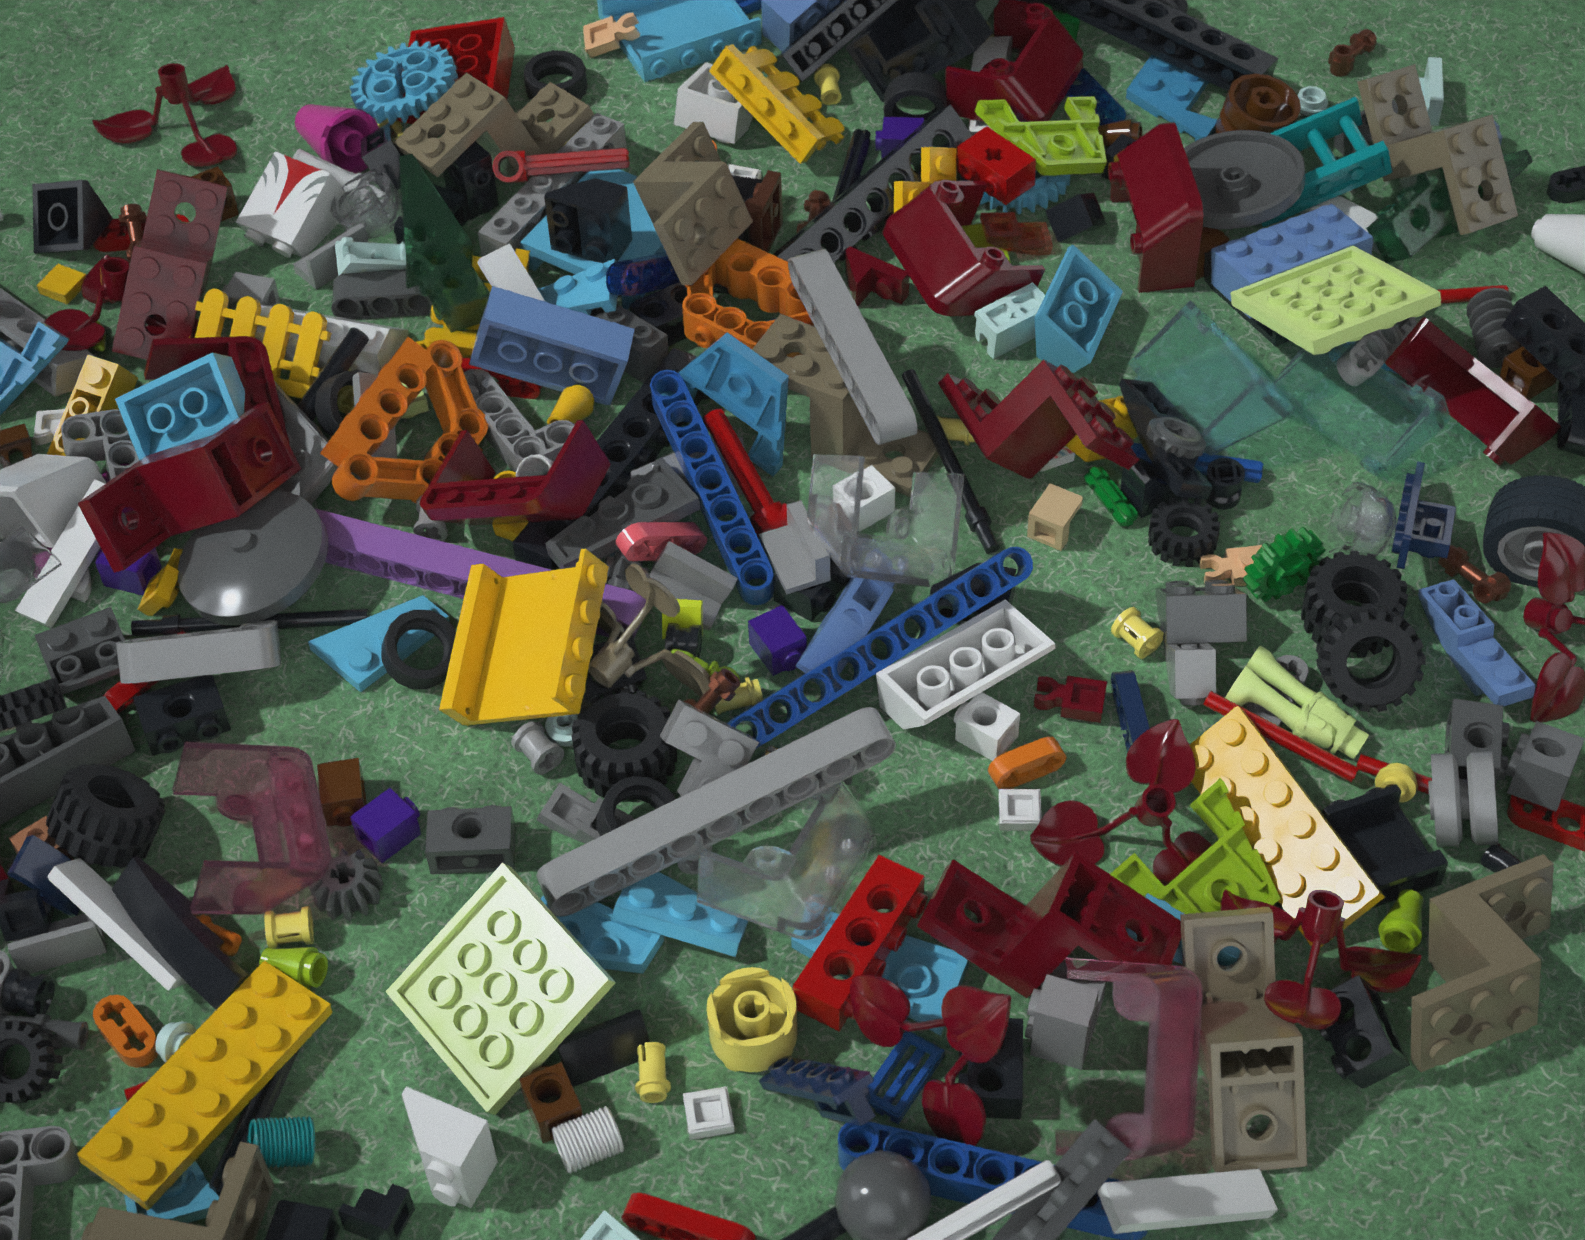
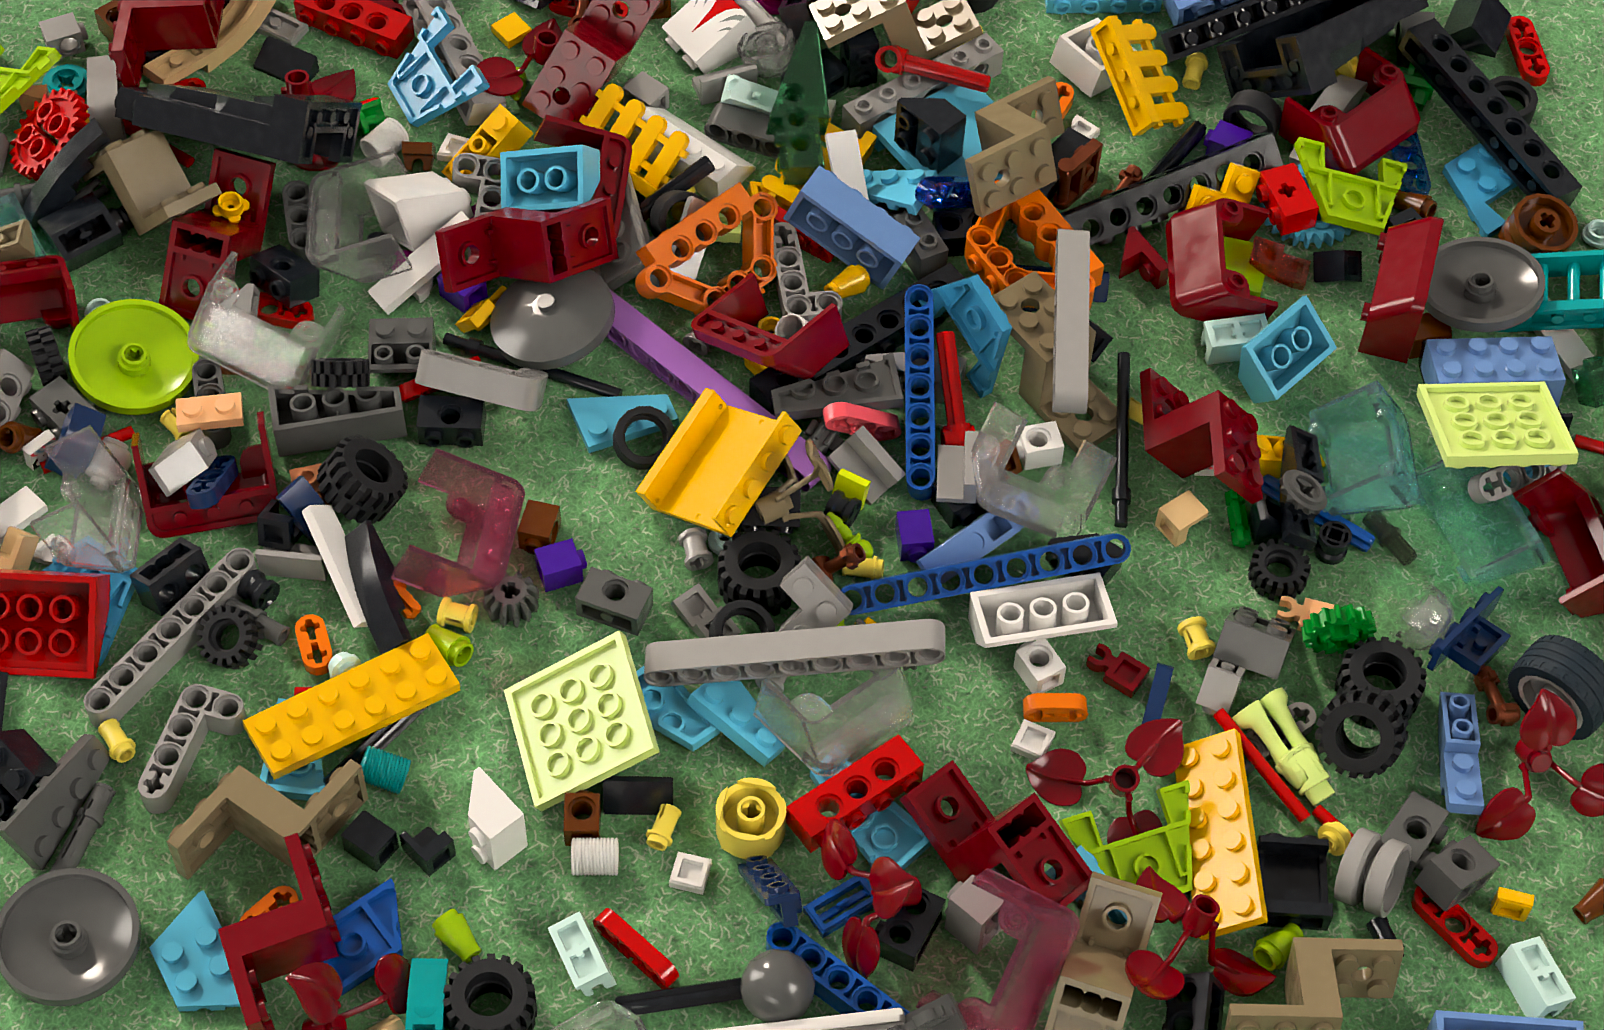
camera: 20 degrees right, 5 degrees up
(1277, 457) = (1390, 537): none -> clear smoke axle

